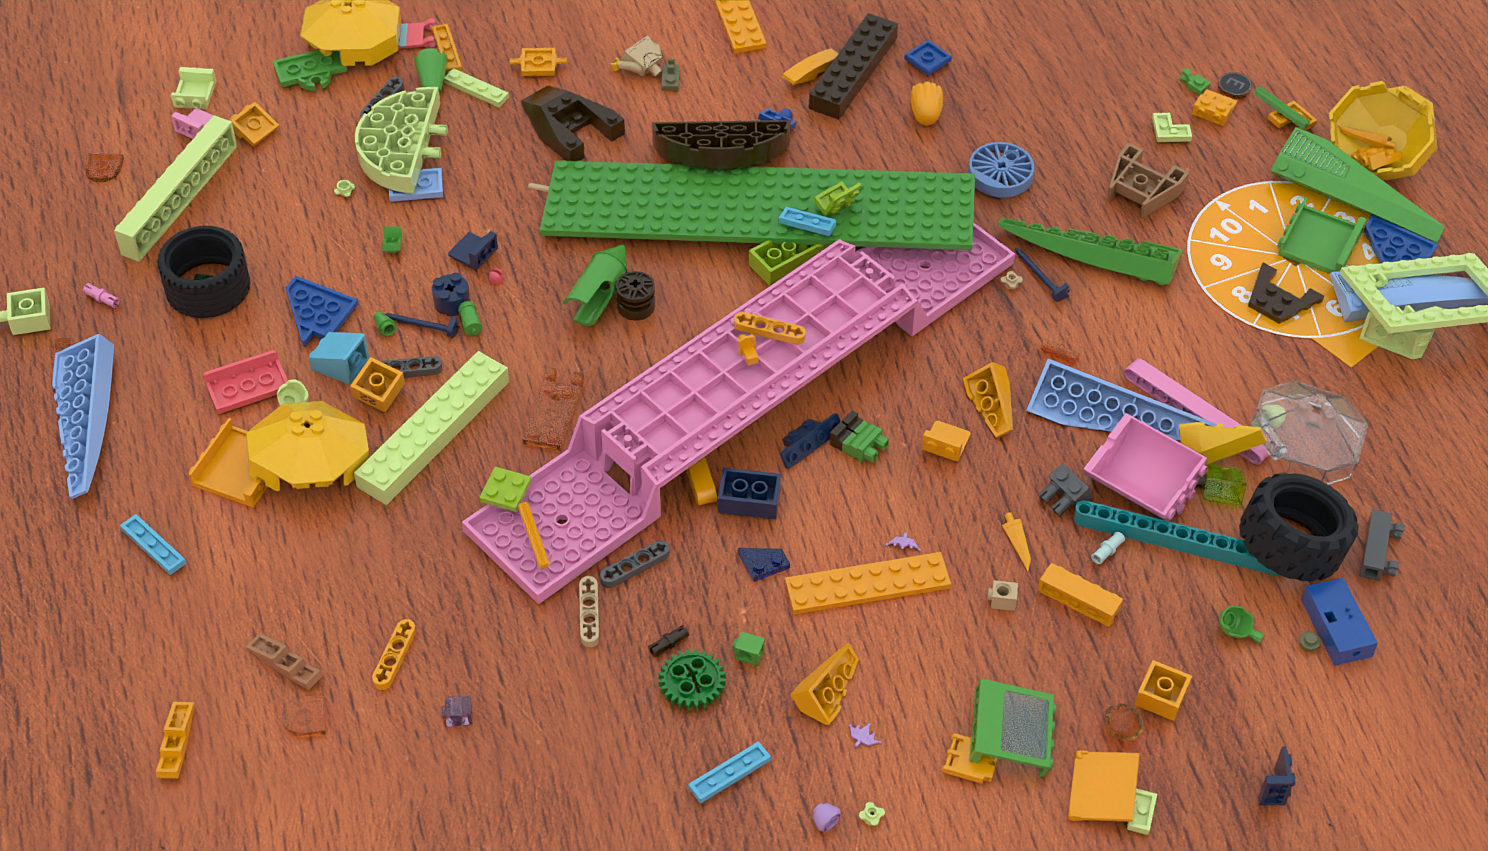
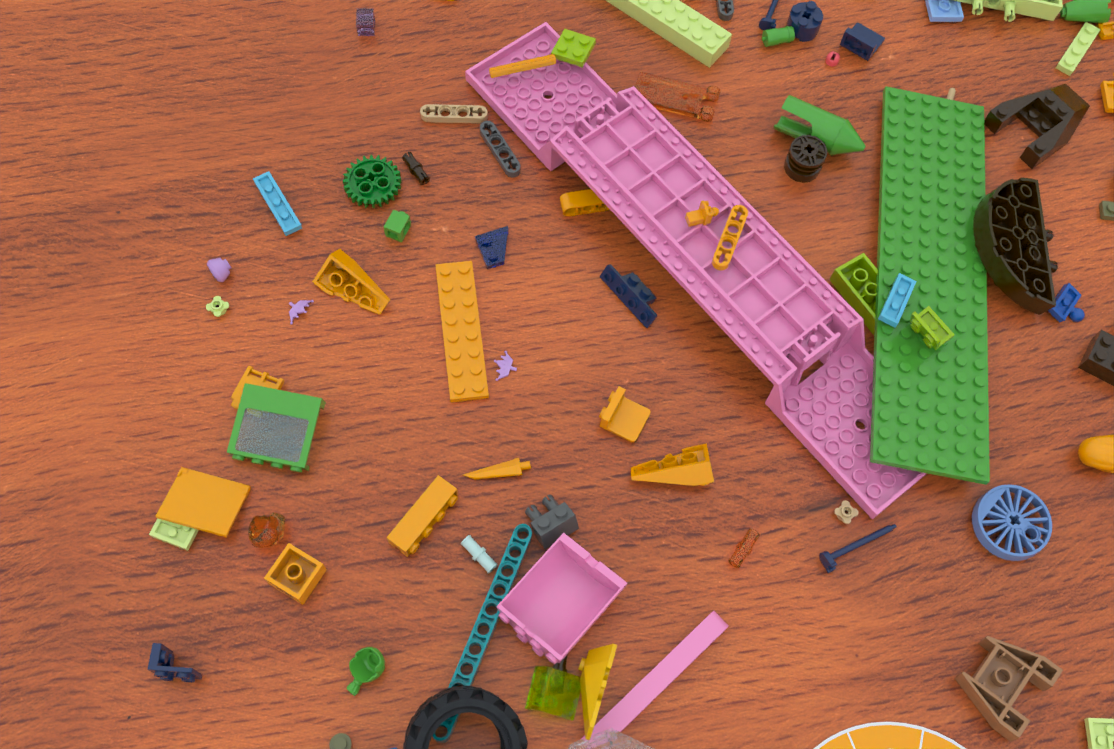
camera: 90 degrees right, 15 degrees up
(749, 493) = (564, 235): dark blue brick -> none
(858, 438) = (630, 336): bright green hips -> none
(1005, 602) = (430, 451): tan brick -> none
(1093, 403) = (667, 571): light blue wedge -> none
(1141, 260) = (888, 637): bright green wedge -> none

